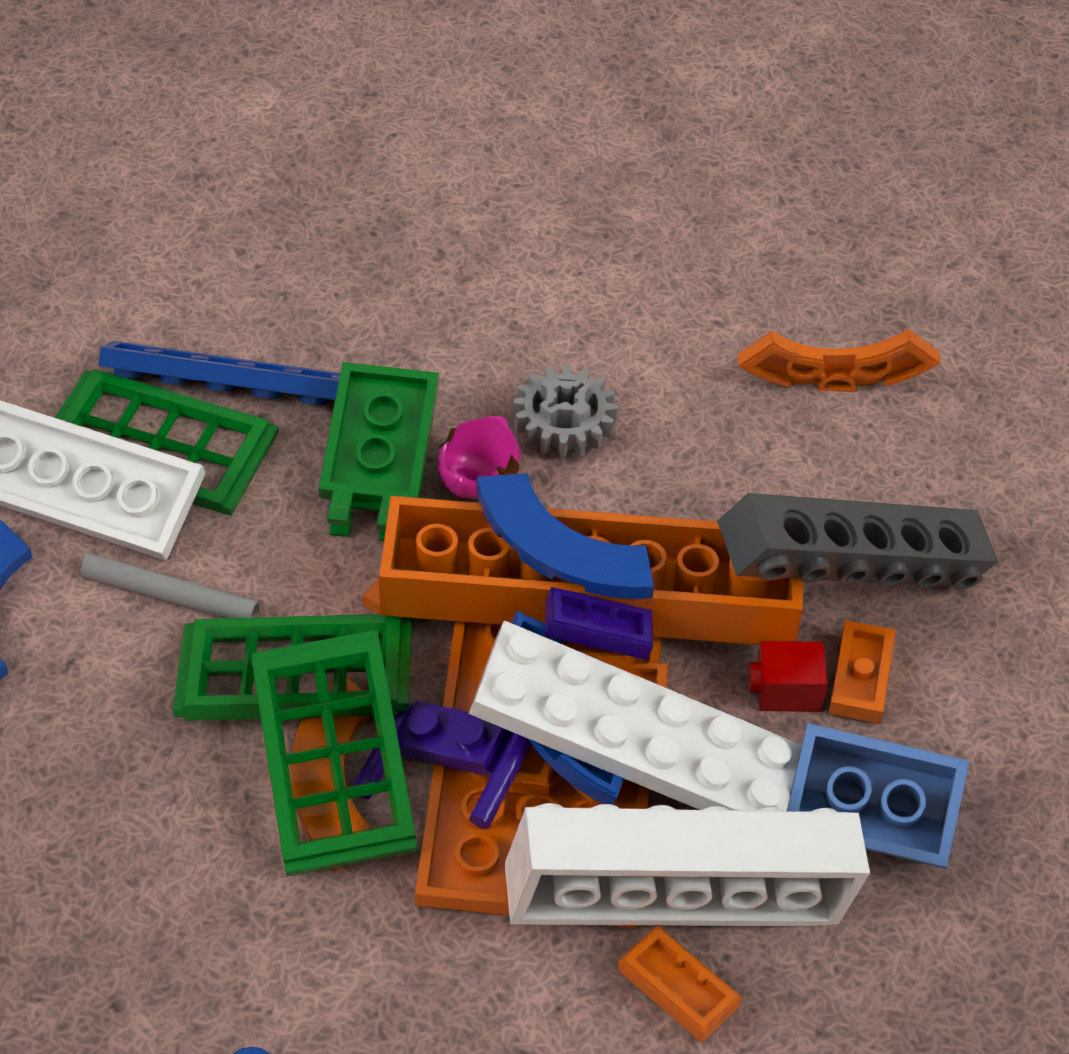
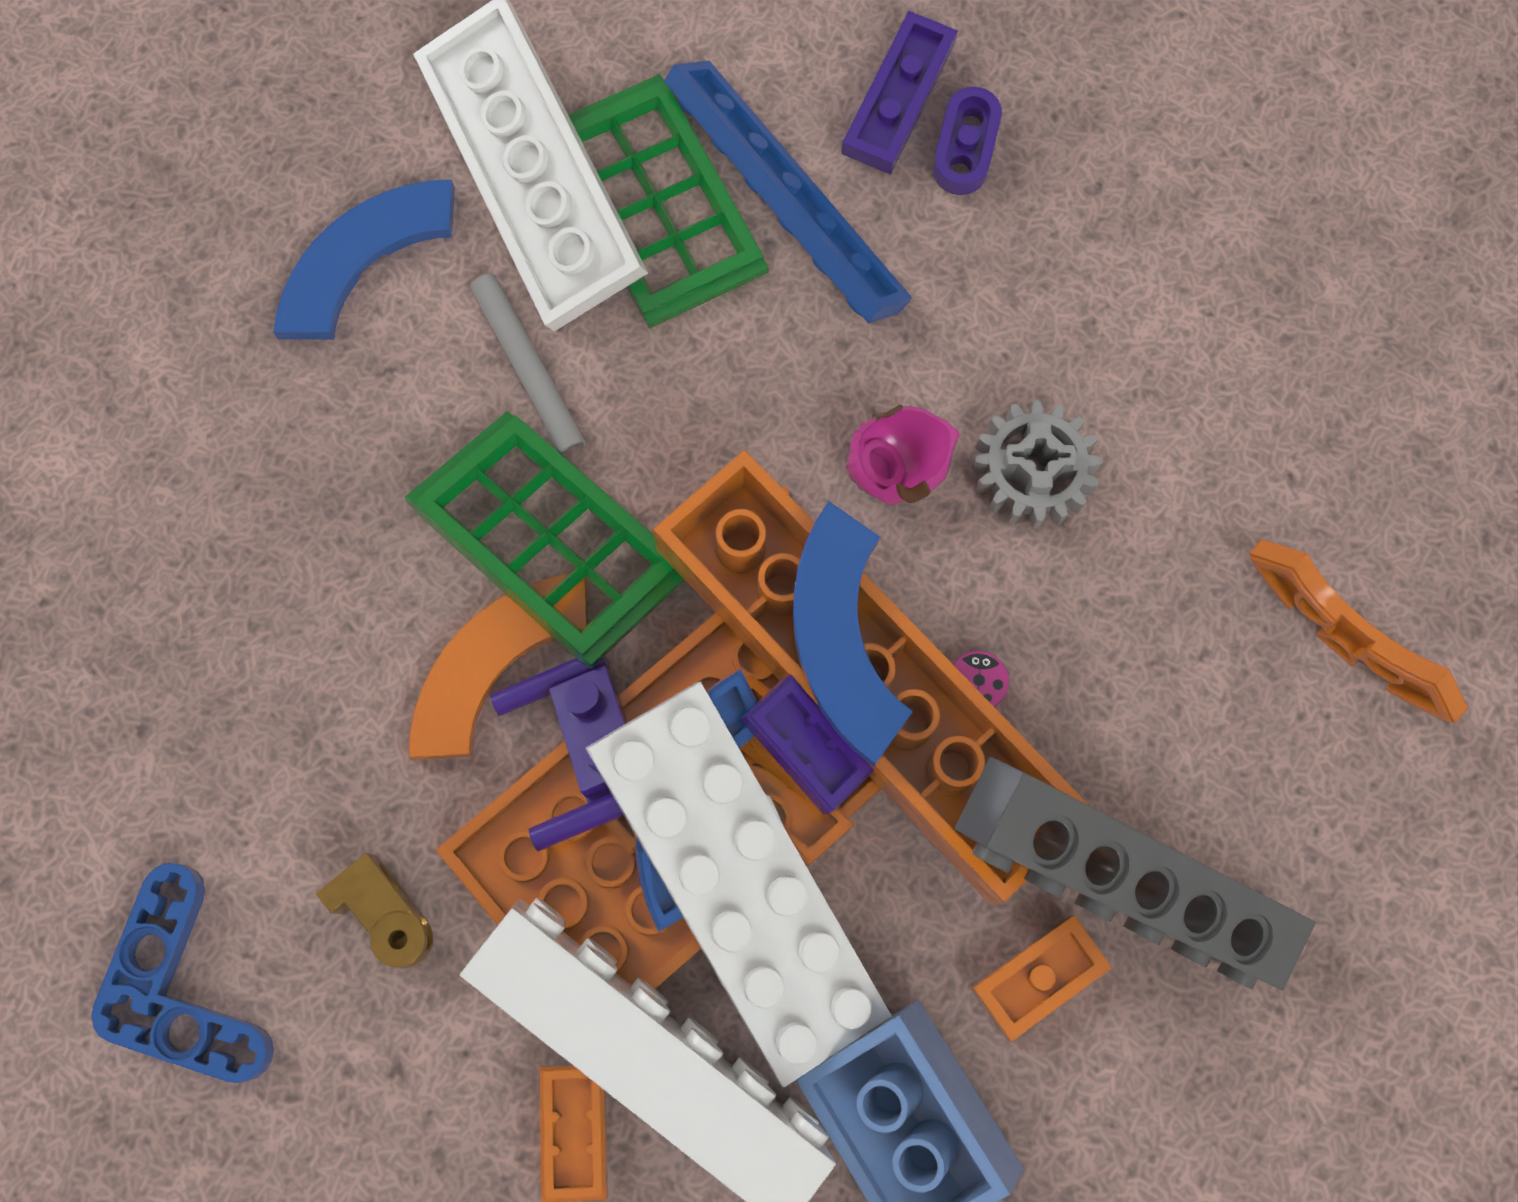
camera: 45 degrees right, 25 degrees up
(262, 279) = (899, 92): none -> dark purple plate
(341, 283) = (965, 142): none -> dark purple plate
(349, 846) = (425, 756): green piece -> none
(376, 441) = (822, 365): green tile -> none
(416, 960) = (396, 926): none -> pearl gold leg
(789, 676) = (963, 925): red brick -> none

